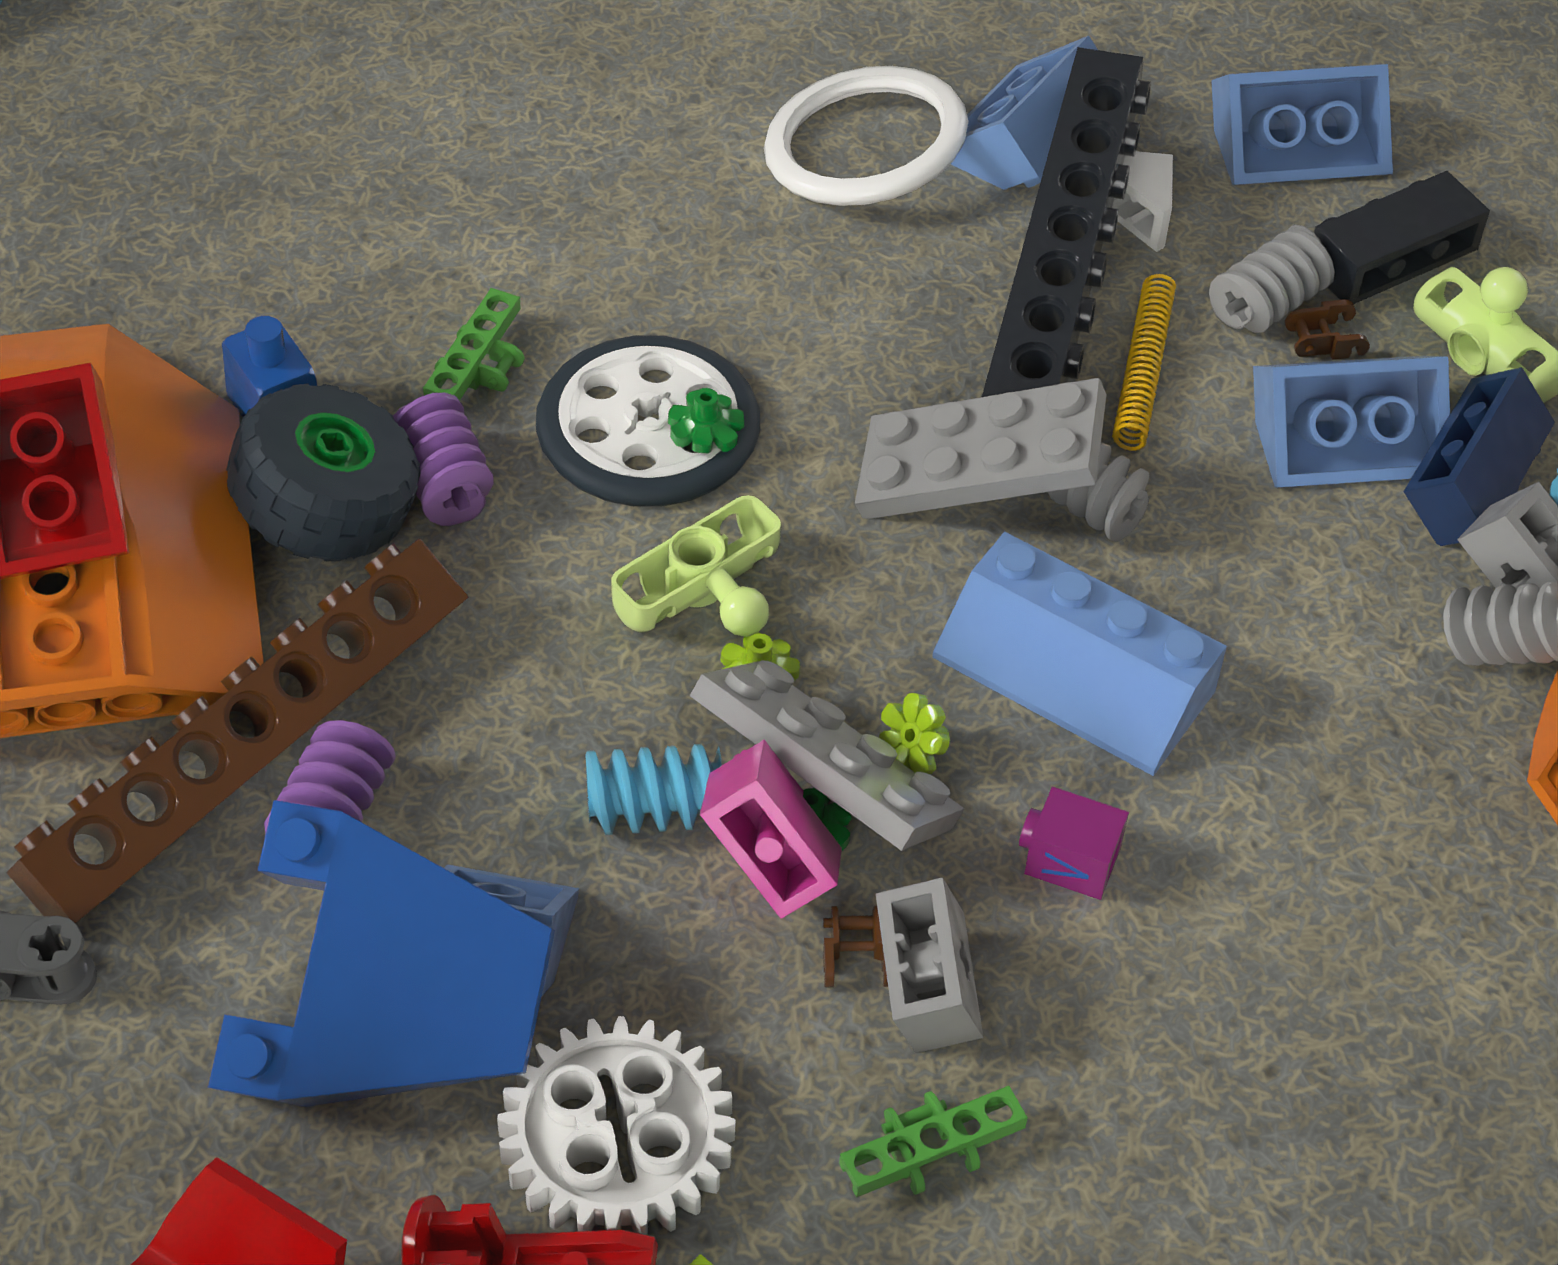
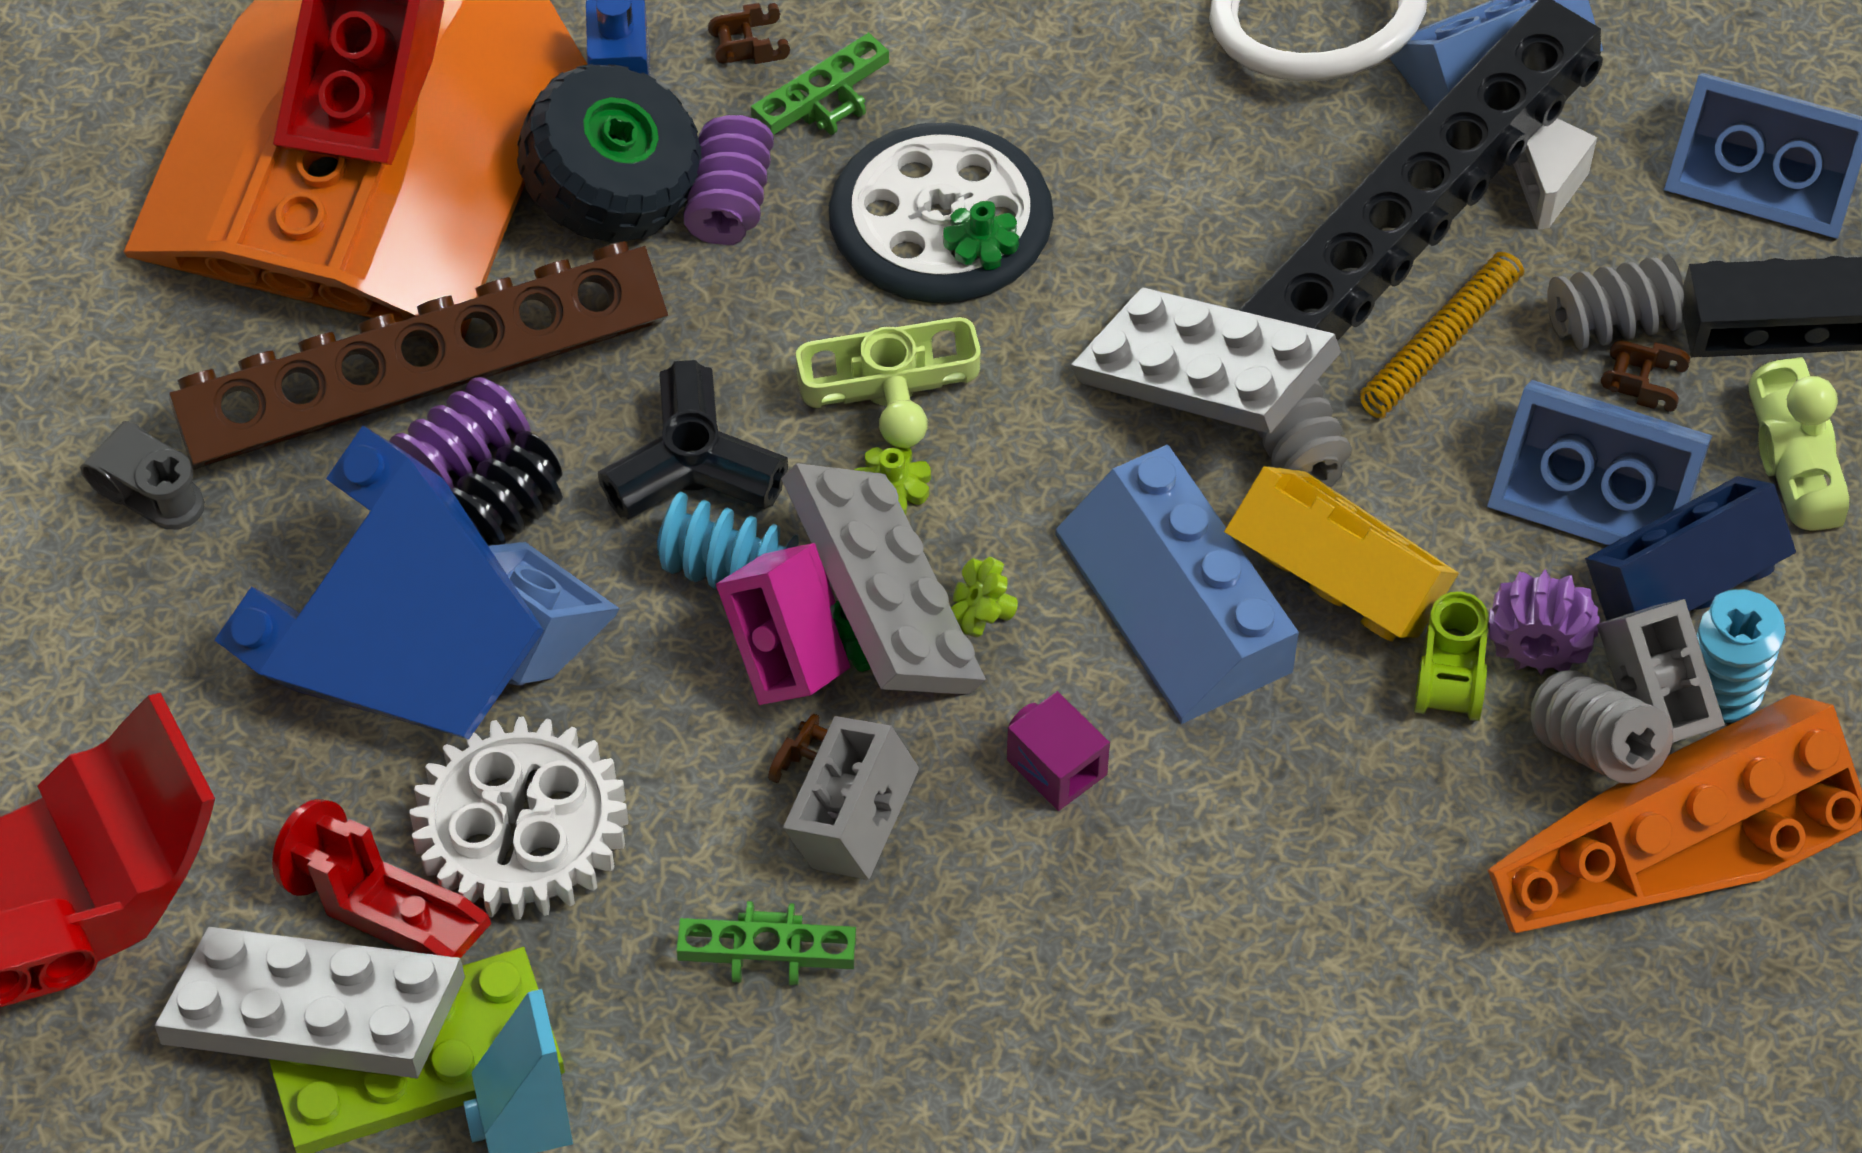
camera: 30 degrees right, 5 degrees up
(387, 340) = (749, 47): none -> reddish brown piece
(418, 804) = (510, 485): none -> black piece
(561, 714) = (716, 459): none -> black piece
(1212, 567) = (1341, 551): none -> yellow wedge
(1351, 620) = (1454, 666): none -> lime piece
(1408, 557) = (1543, 622): none -> medium lavender gear

